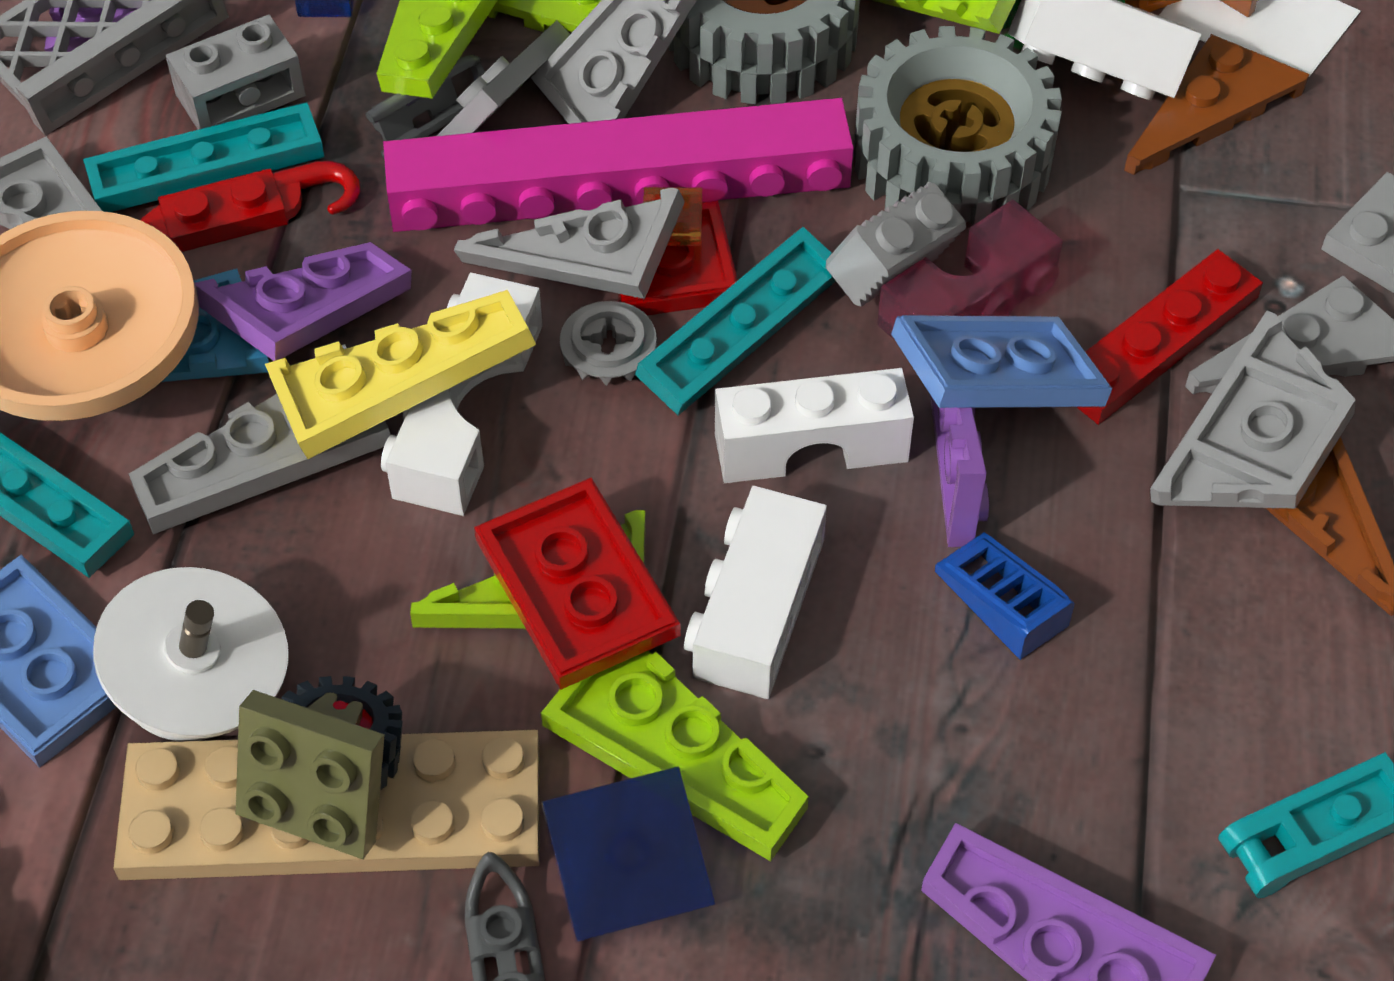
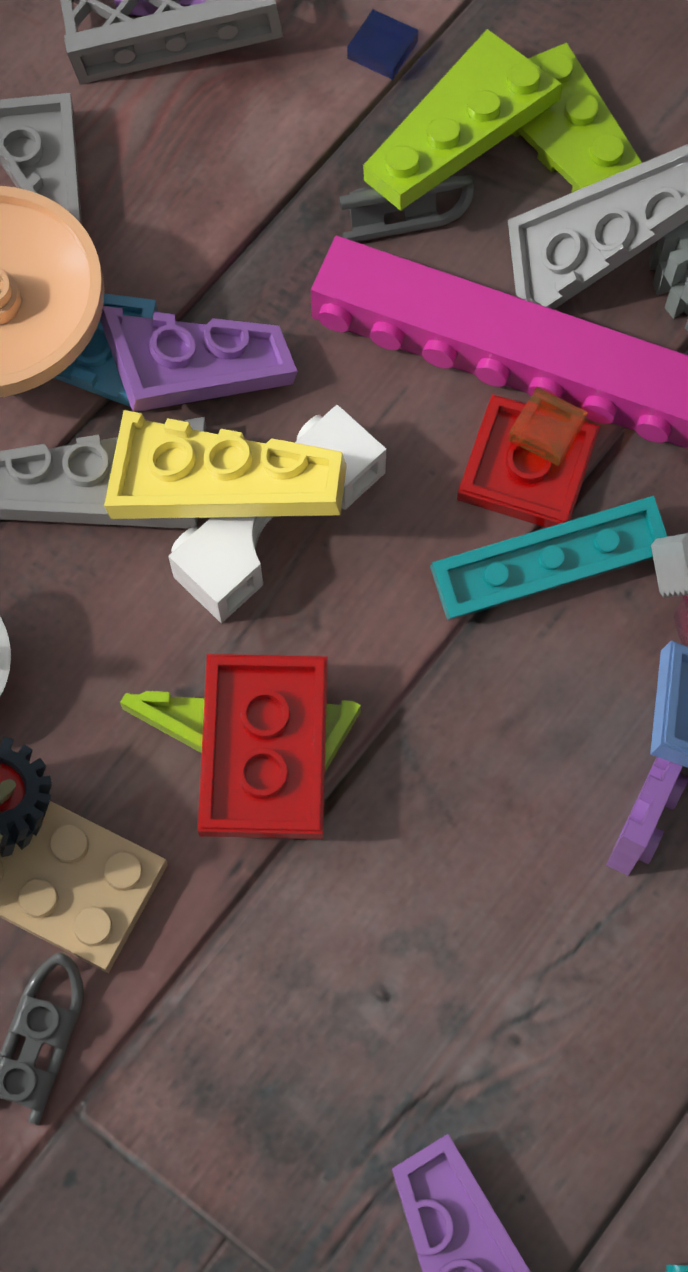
camera: 30 degrees right, 15 degrees up
(203, 157) = (189, 173): teal plate -> none
(236, 74) = (253, 103): light grey brick -> none
(246, 203) = (198, 233): red plate -> none
(502, 81) = (475, 218): light grey wing -> none
(588, 326) = (419, 498): light grey gear -> none
(595, 248) = (463, 430): light grey wing -> none
(627, 853) = (171, 1012): clear blue plate -> none
(650, 722) = (268, 933): lime wing -> none
(756, 591) = (412, 828): white brick -> none
(770, 421) = (515, 680): white arch -> none
(1019, 633) = (629, 988): blue slope -> none

